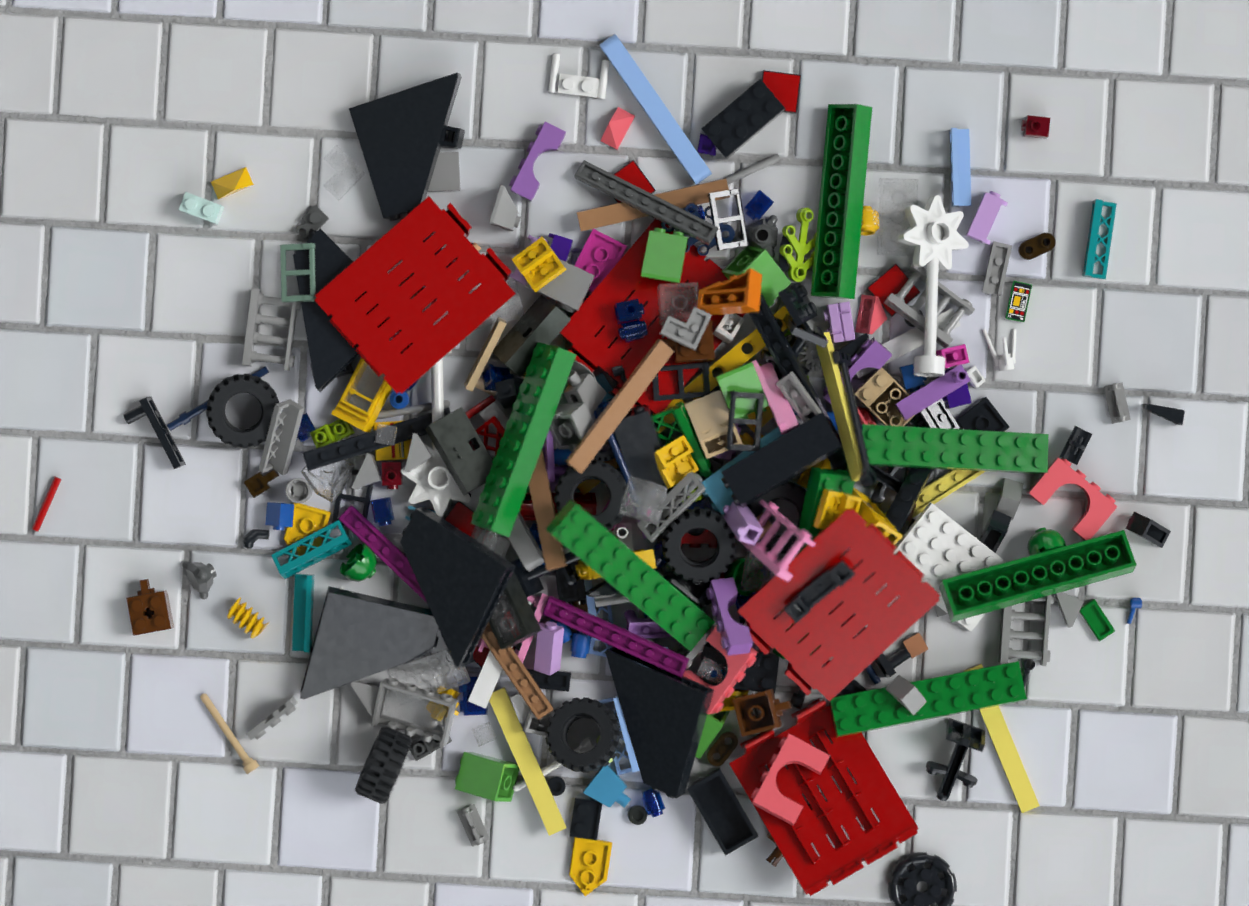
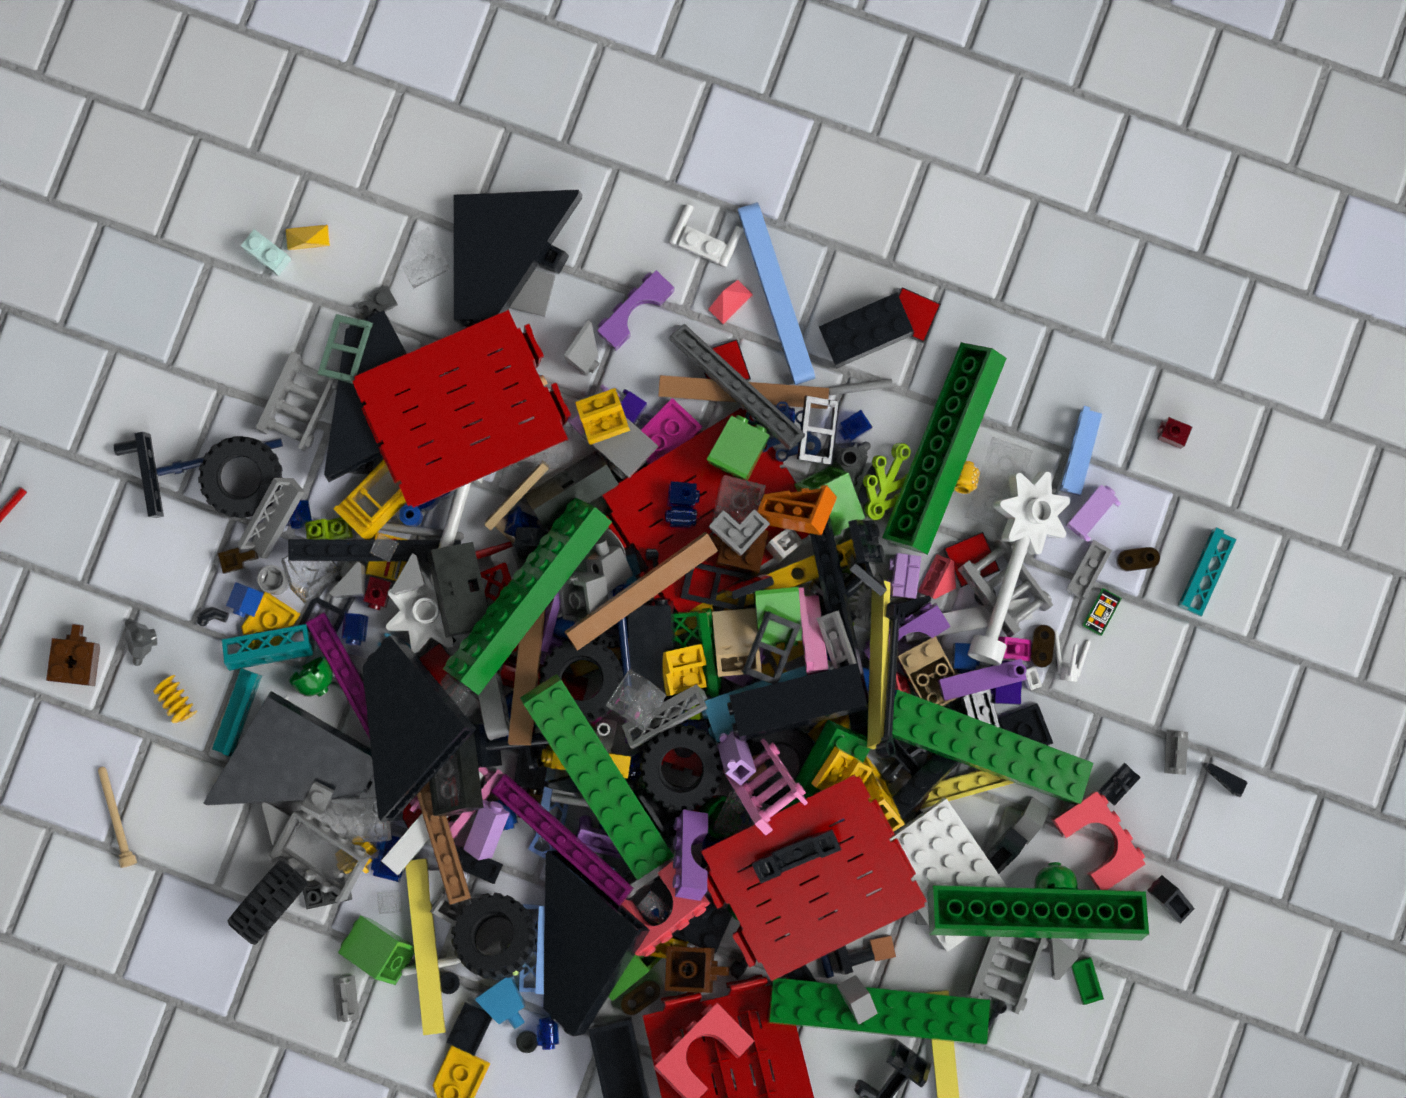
camera: 20 degrees right, 5 degrees down
(272, 720) = (168, 817): light grey wing -> none
(397, 666) = (317, 800): none -> light grey bracket
(580, 644) = (522, 837): blue brick -> none
(706, 146) = (818, 348): dark purple tile -> none
(709, 374) = (748, 586): none -> black tile
(976, 346) = (1042, 646): none -> dark brown plate
(1134, 603) = (1133, 975): blue hand -> none

